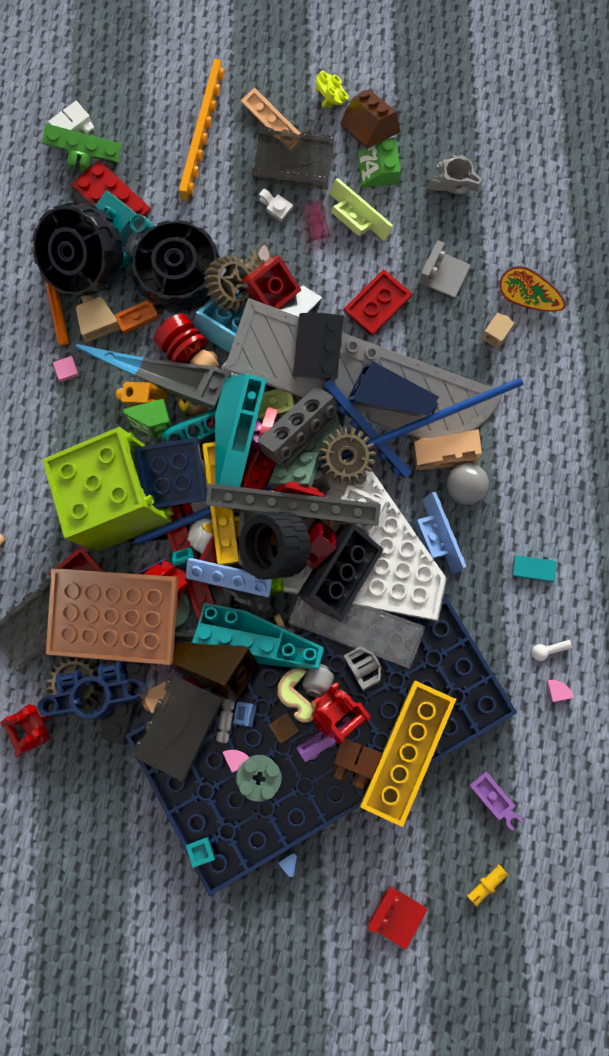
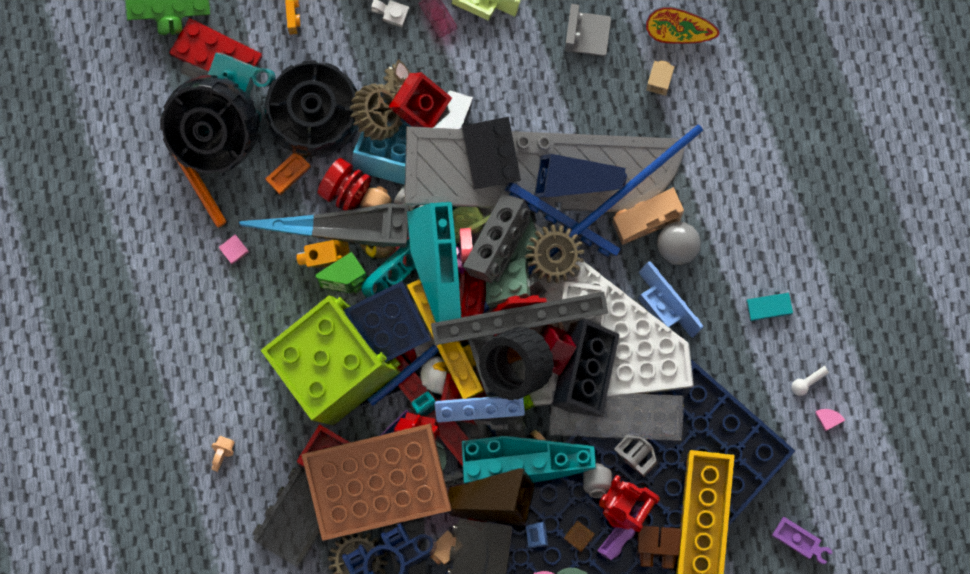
camera: 20 degrees left, 0 degrees up
(95, 318) = (247, 187): tan torso -> none
(225, 721) = (521, 547): light grey axle -> none
(292, 698) = (578, 505): animal -> none
(377, 302) = (529, 84): red plate -> none

